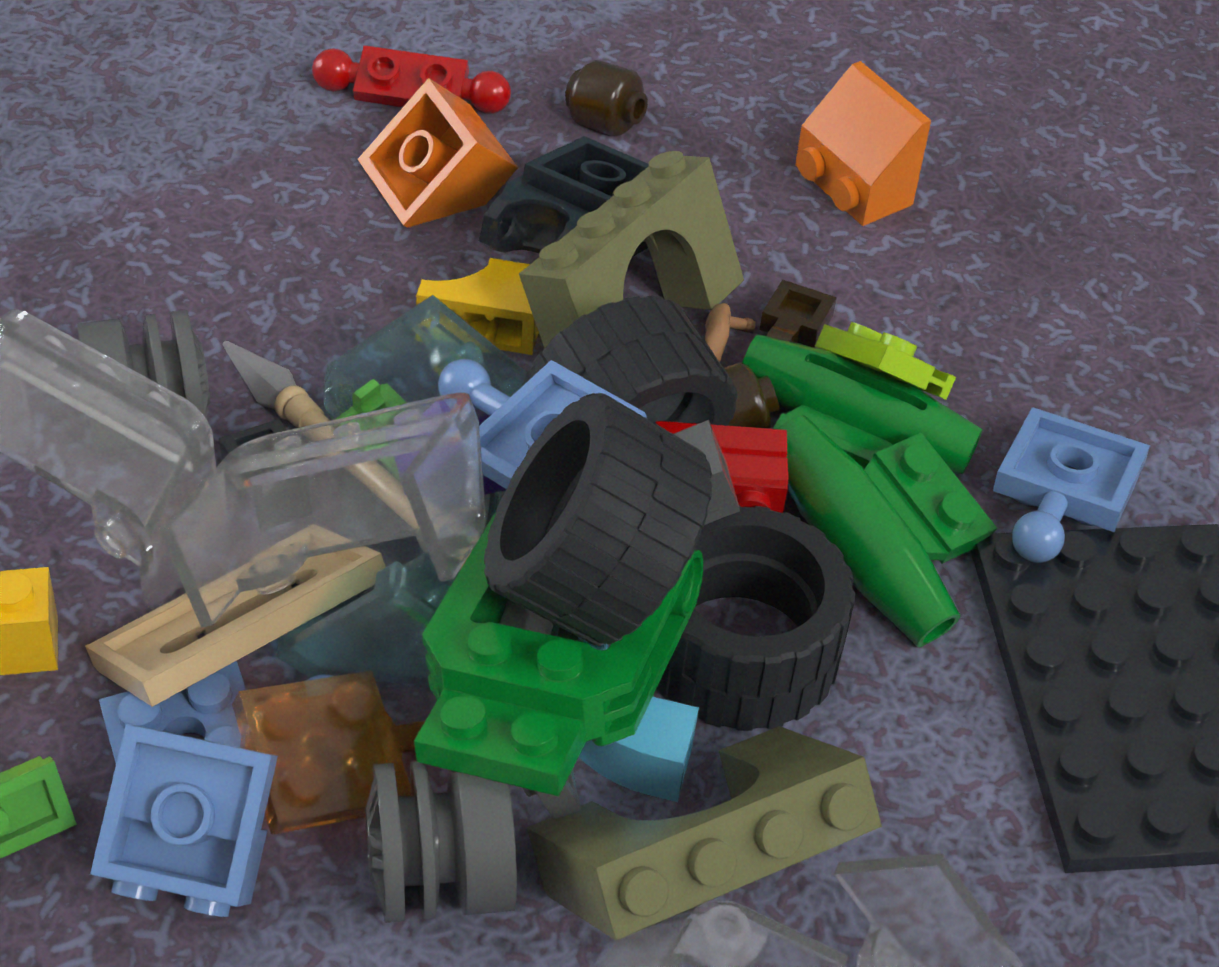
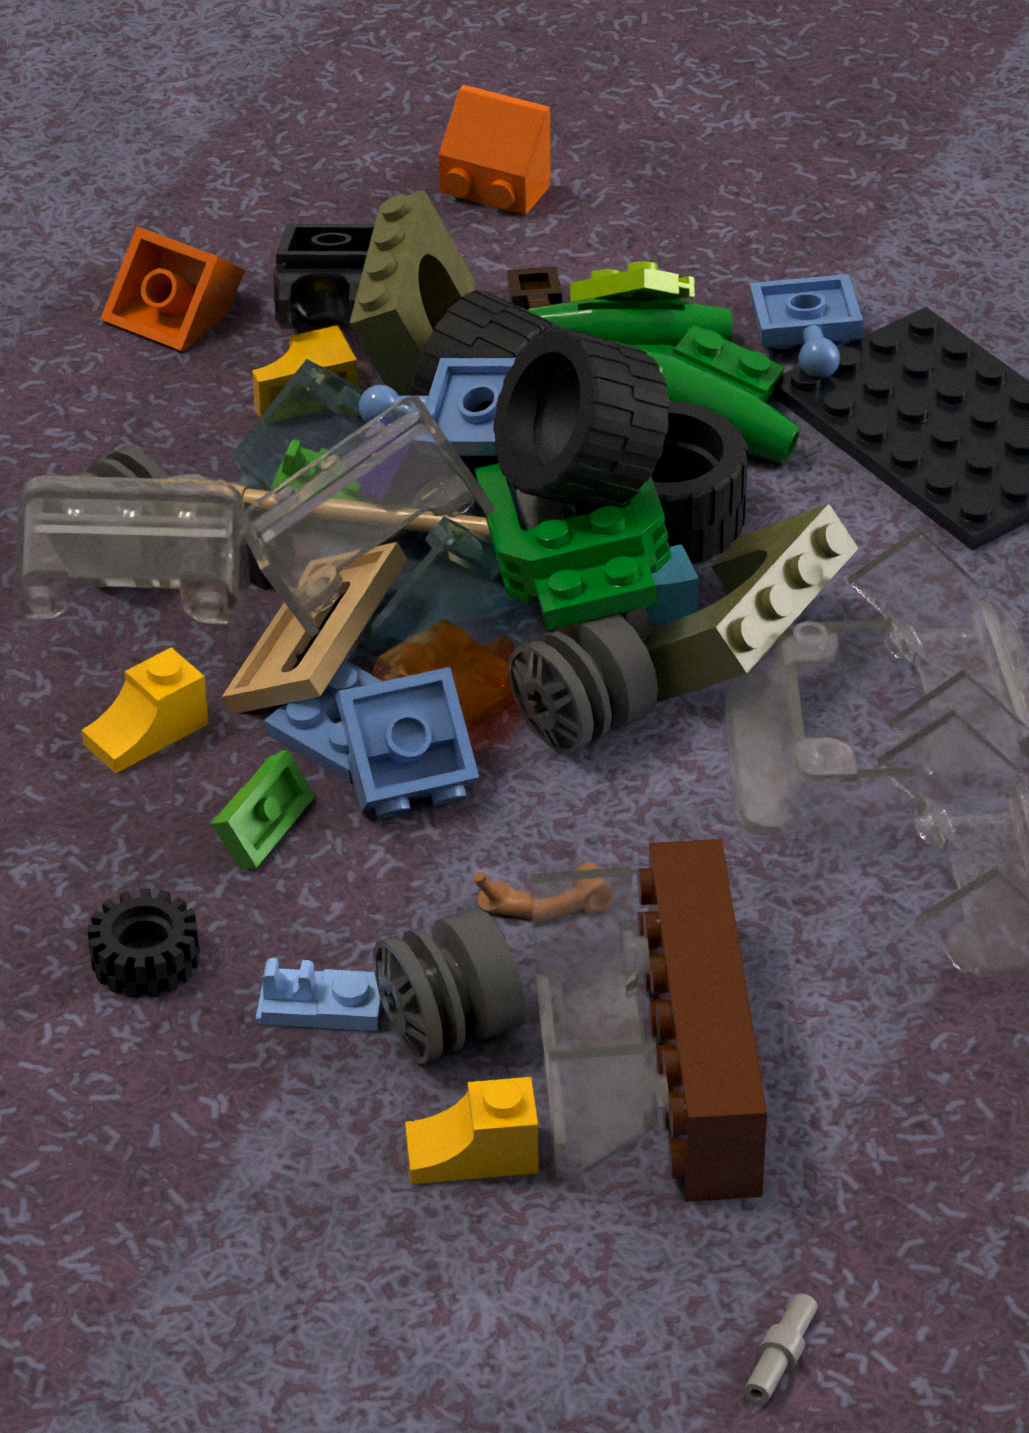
camera: 25 degrees left, 5 degrees down
(396, 75) = (86, 244): red plate -> none
(606, 98) = (262, 196): dark brown head -> none

